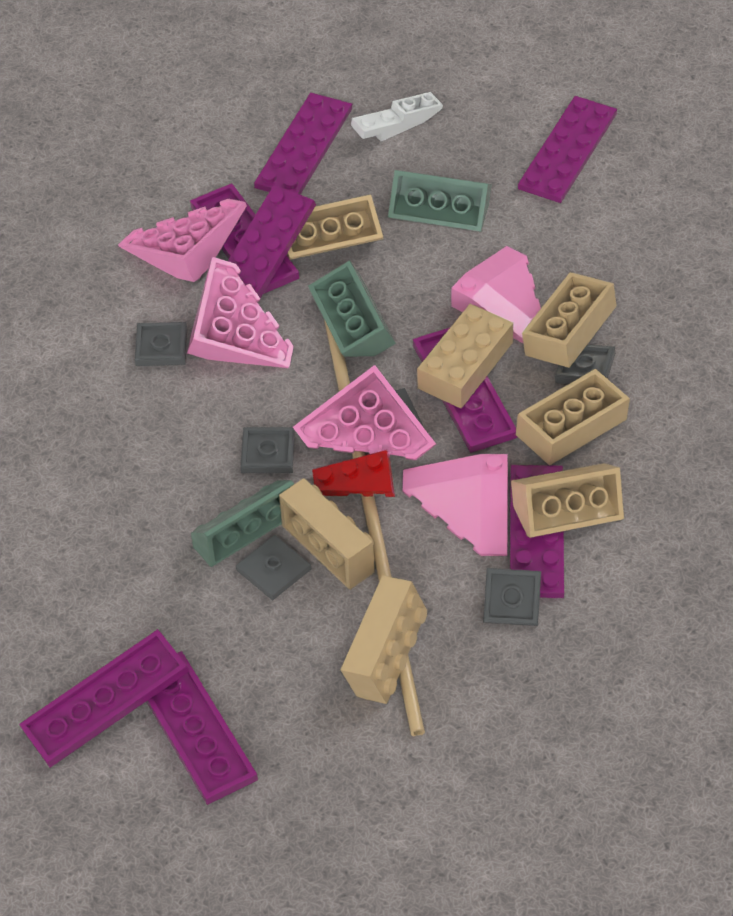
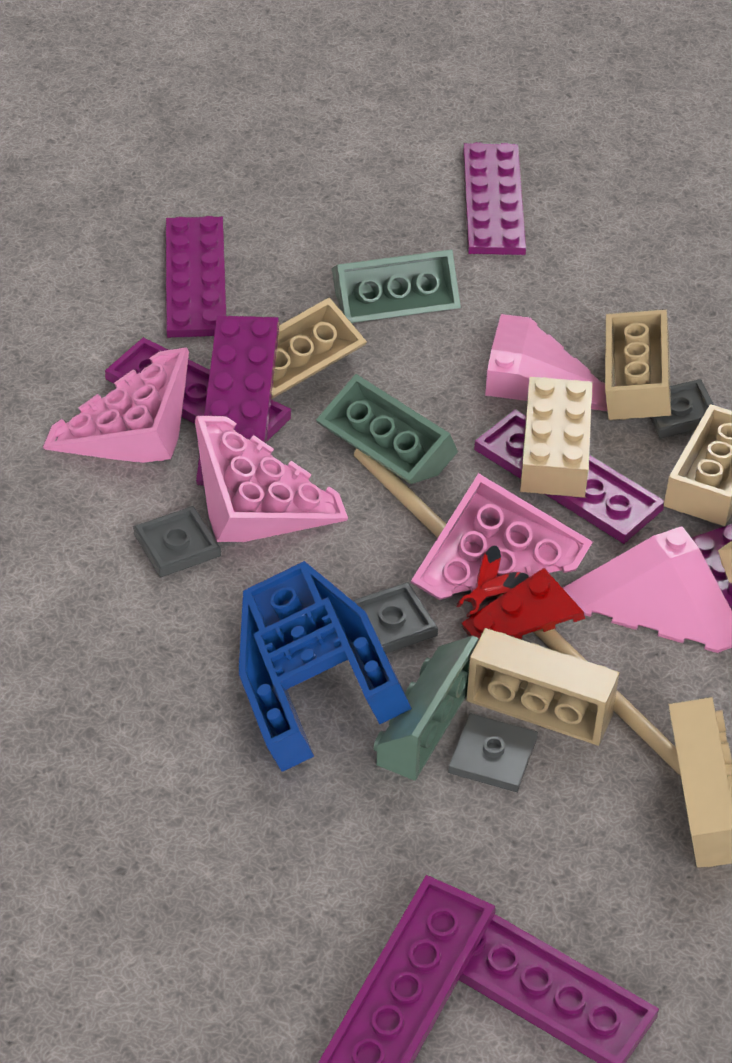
camera: 30 degrees left, 5 degrees down
(185, 436) = (295, 631): none -> blue wedge
(345, 447) = (487, 582): none -> red piece
(402, 116) = (290, 214): white slope -> none

